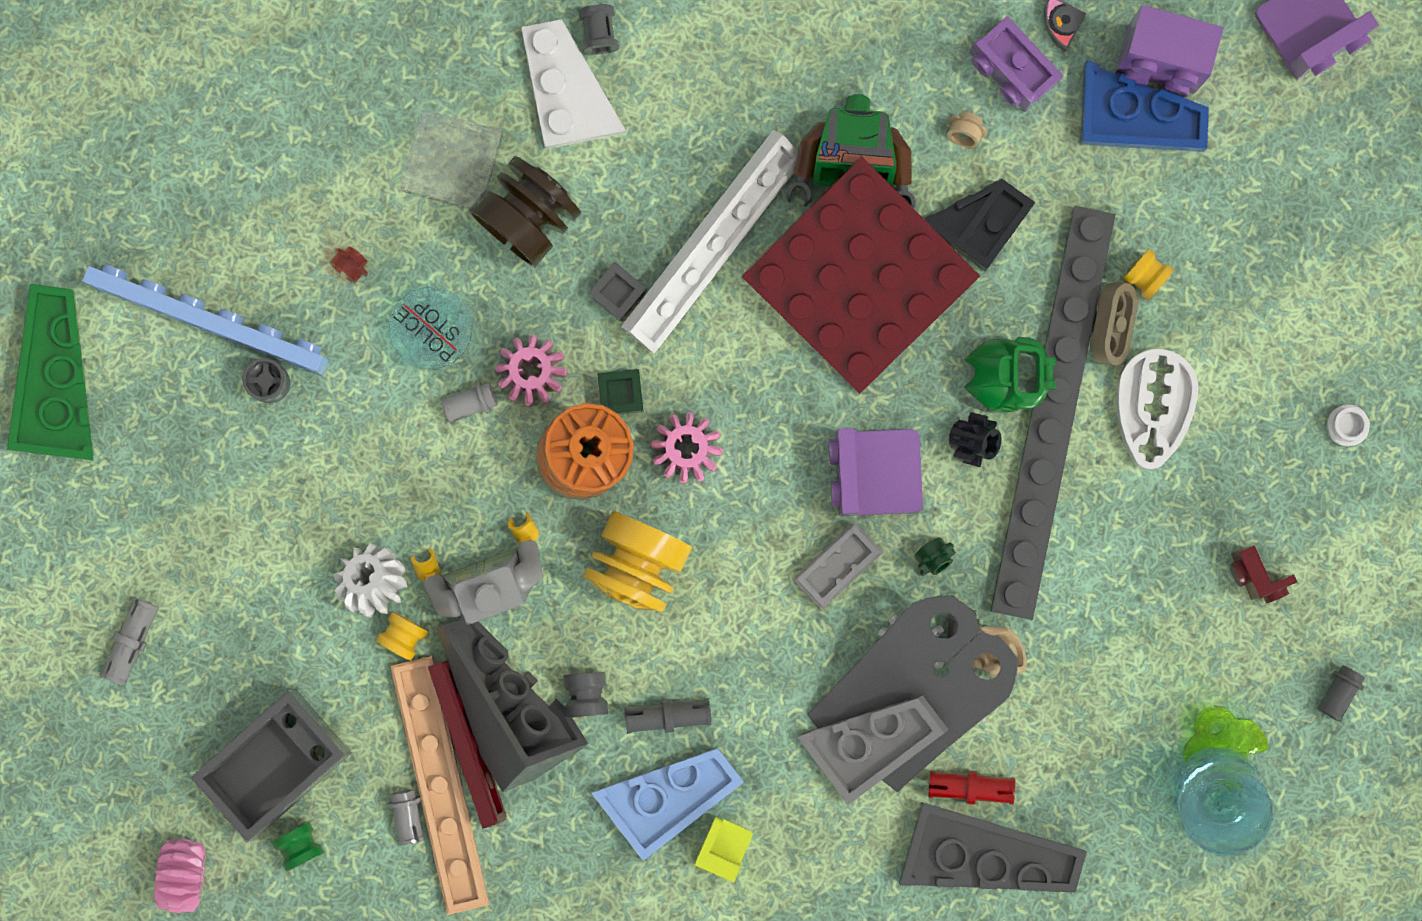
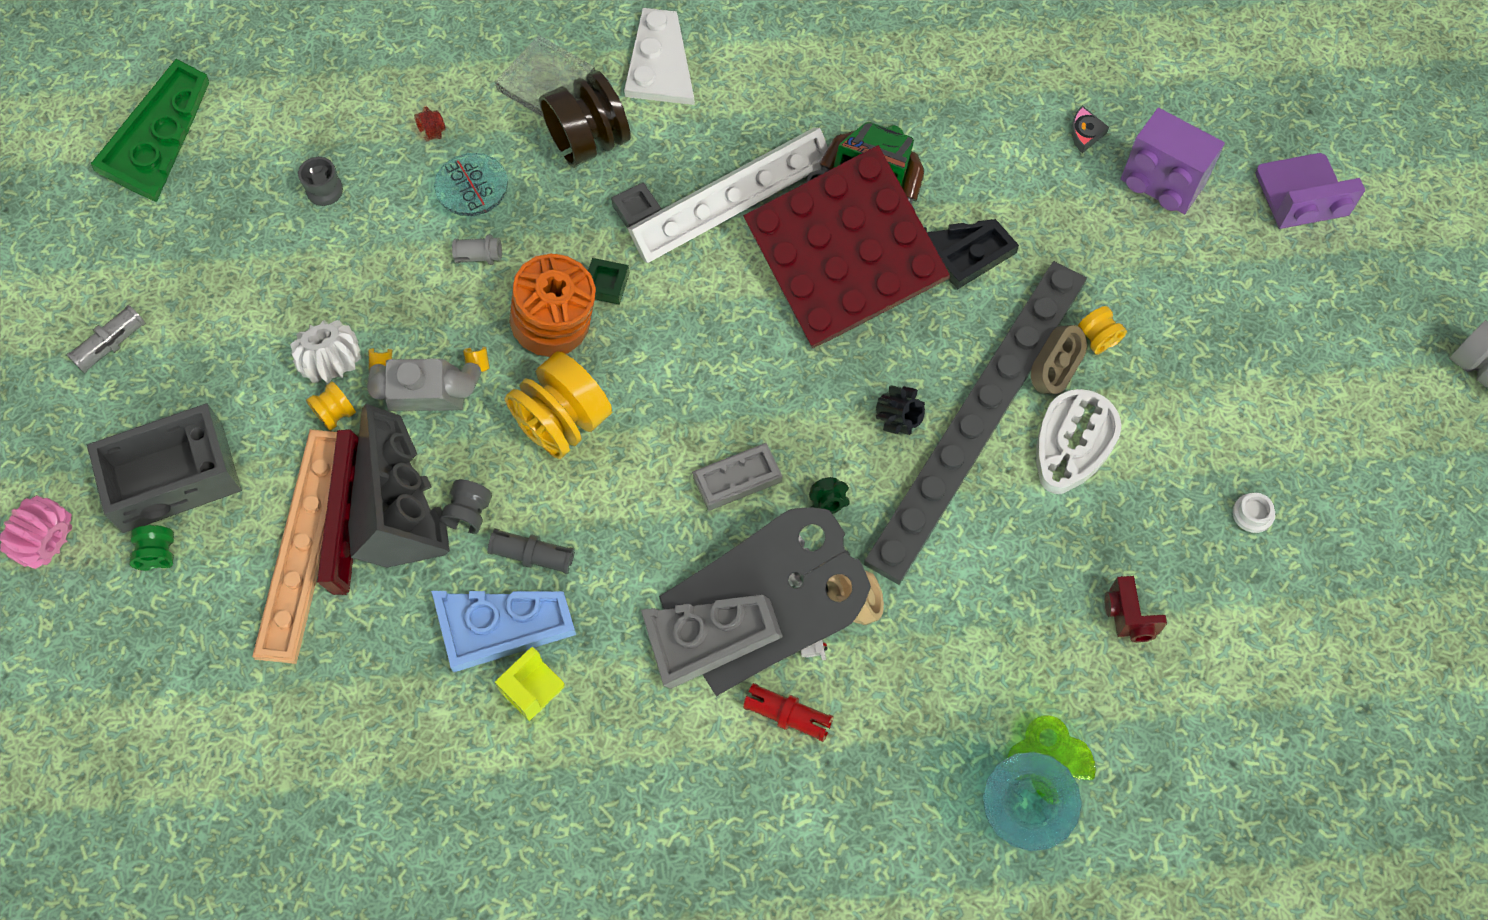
camera: 25 degrees right, 20 degrees down
(191, 312) = (291, 120): light blue plate -> none
(406, 816) = (259, 557): light grey pin -> none
(532, 384) = (537, 236): bright pink gear -> none
(598, 29) = (702, 25): dark grey bush -> none
(675, 456) = (650, 349): bright pink gear -> none
(876, 472) = (799, 410): medium lavender bracket -> none
(968, 124) = (978, 175): tan plate -> none
(976, 853) = (774, 778): dark grey wing -> none
(997, 374) = (935, 364): green helmet -> none
(1014, 64) = (1035, 144): medium lavender bracket -> none
(1138, 116) = (1121, 209): blue wing -> none
(1341, 693) = (1184, 749): dark grey pin -> none

